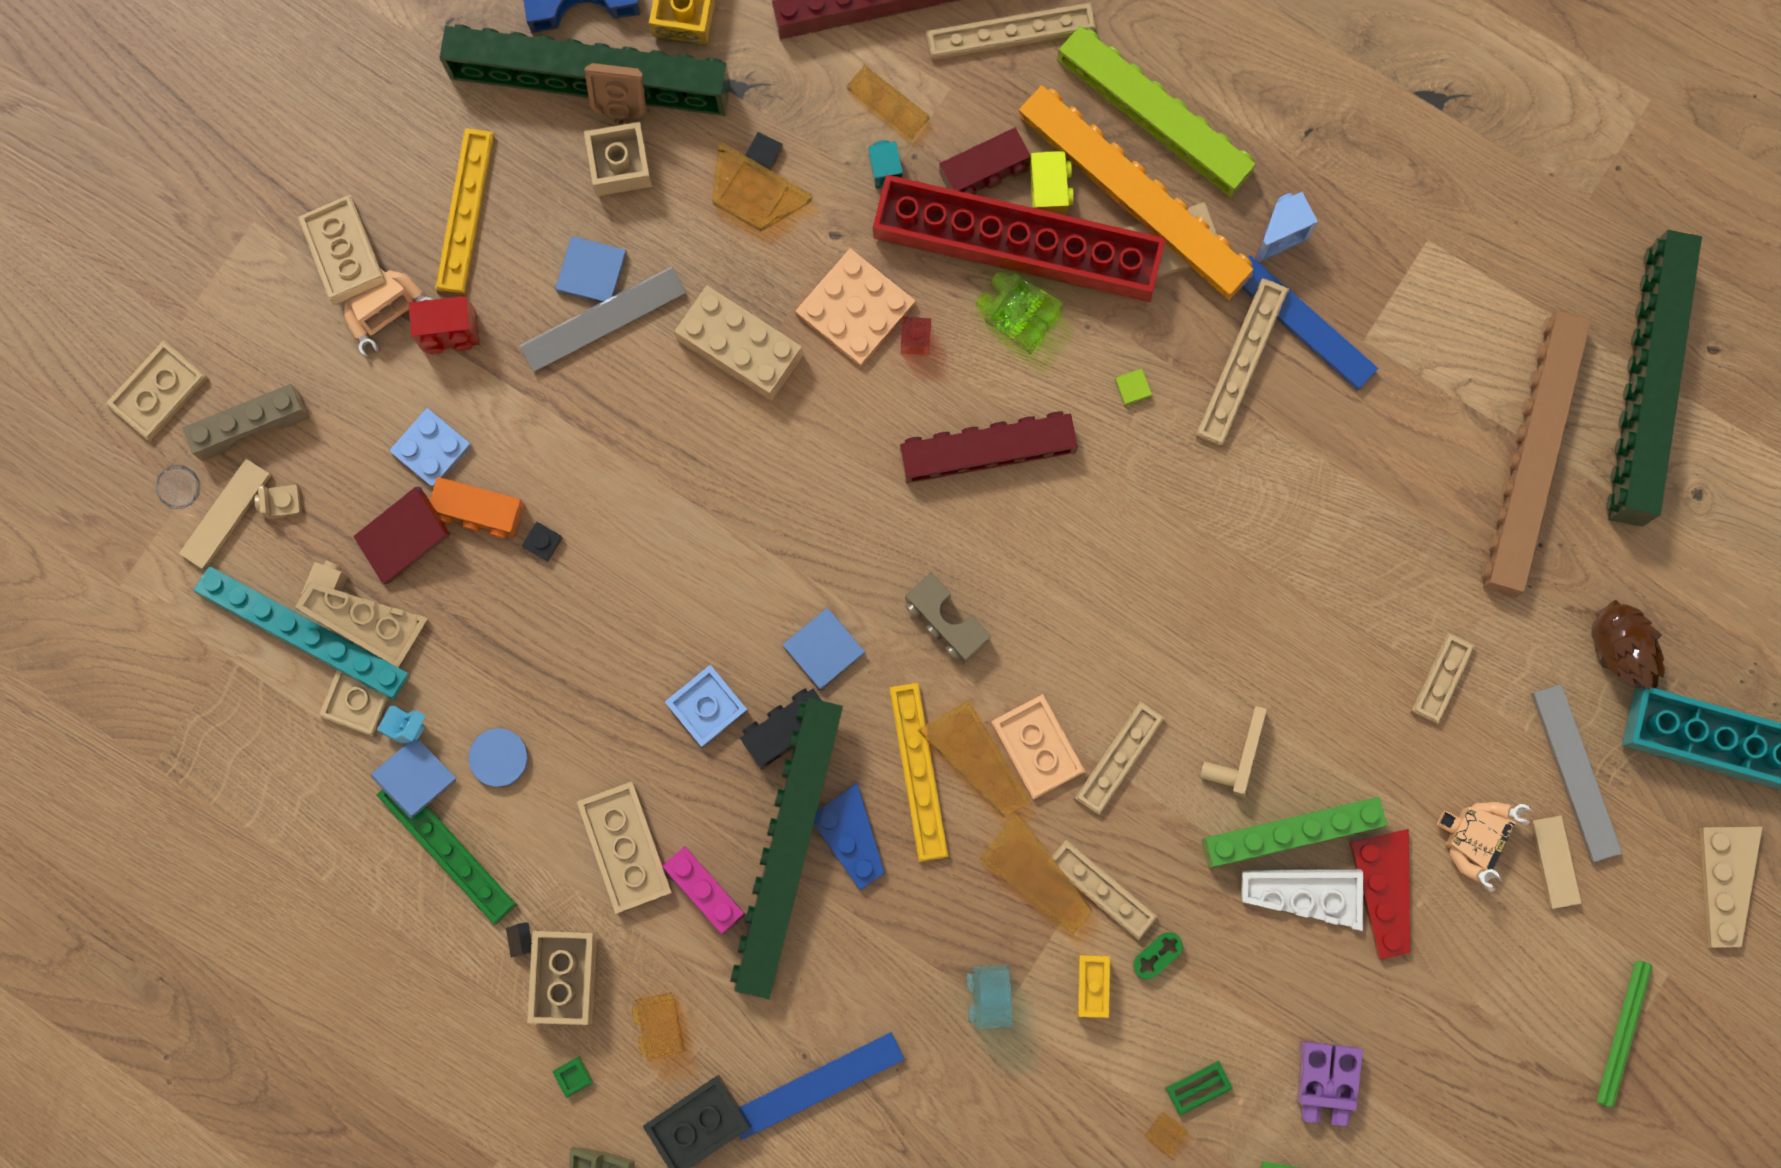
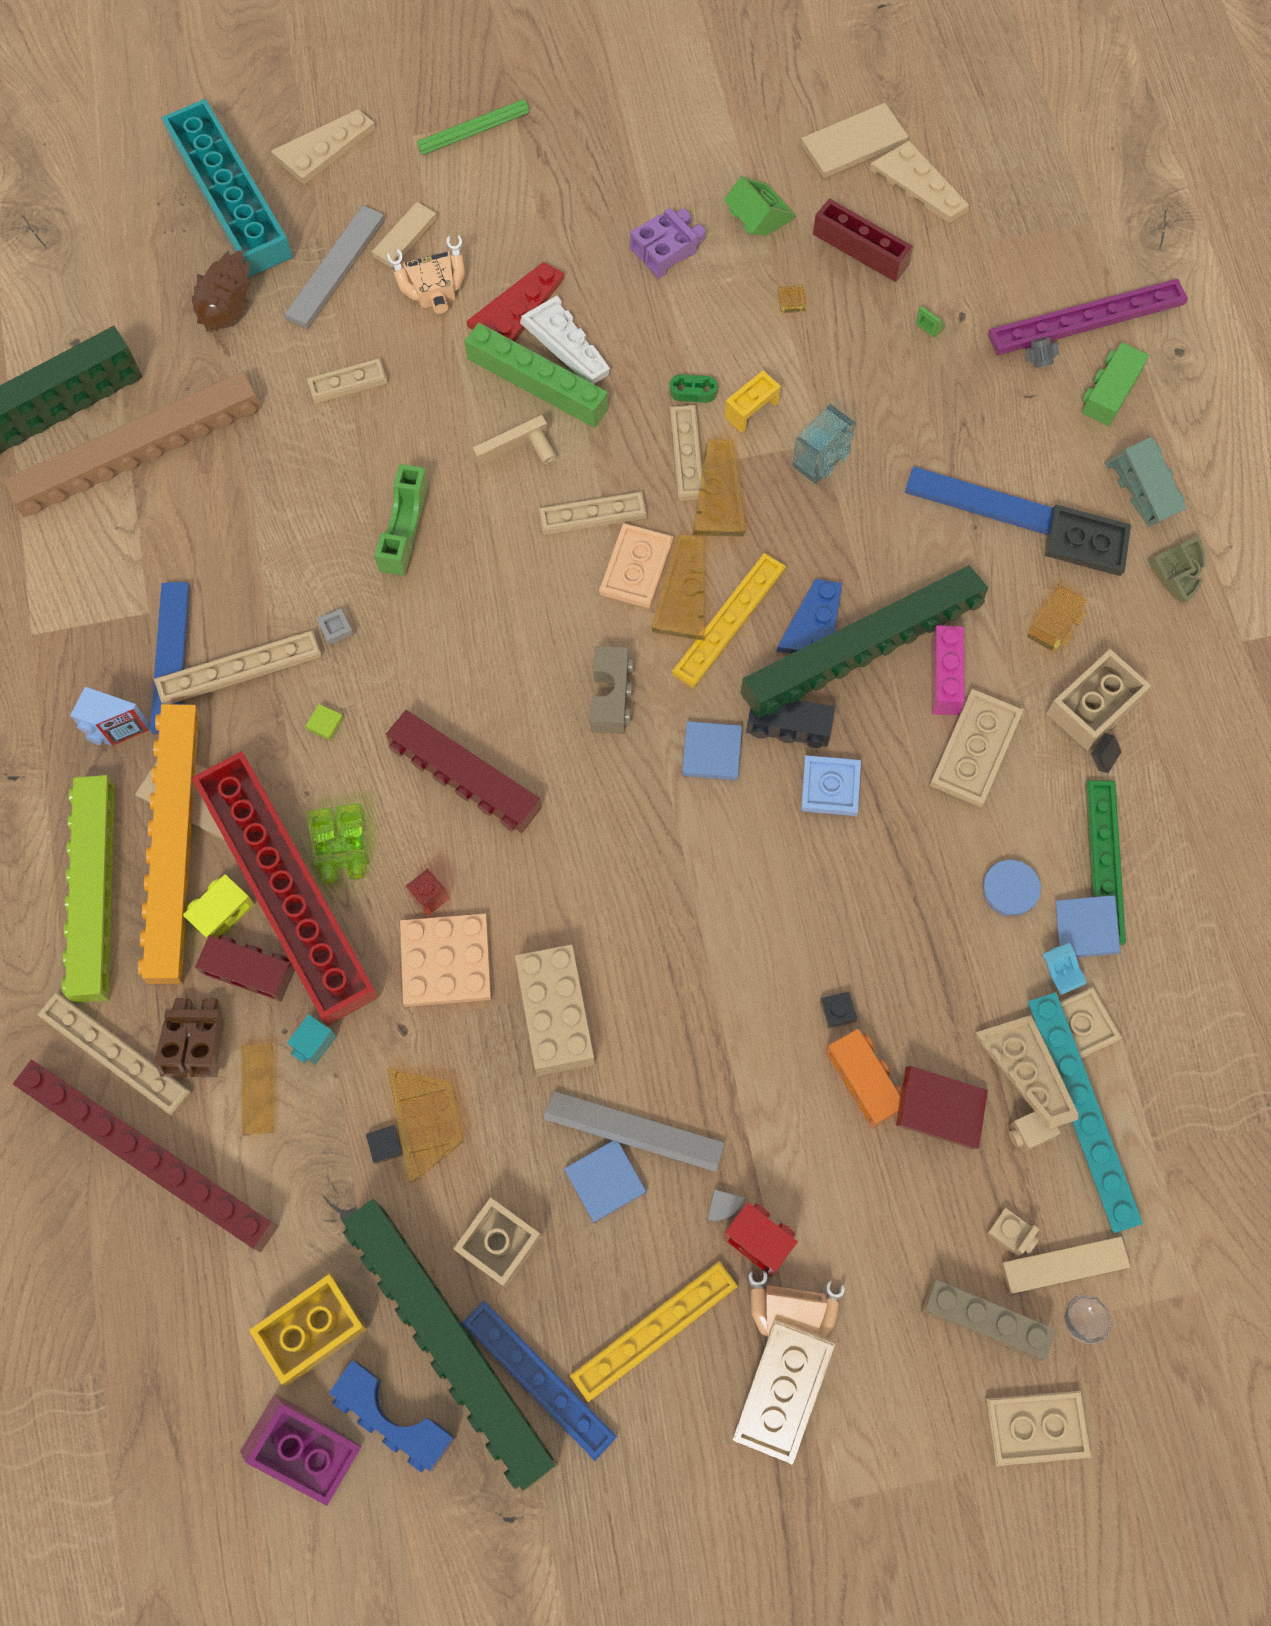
camera: 135 degrees left, 10 degrees down
(430, 447) = (857, 1161): light blue plate -> none
(494, 331) = (724, 1206): none -> light grey tile
(509, 112) = (539, 1380): none -> blue tile
(572, 1077) = (1144, 643): green tile -> none
(616, 92) = (446, 1287): medium nougat tile -> none
(965, 83) = (190, 1040): none -> reddish brown hips
(1208, 464) = (335, 626): none -> light grey plate
(1210, 1068) = (745, 307): green tile -> none
(1264, 612) = (408, 501): none -> bright green arch

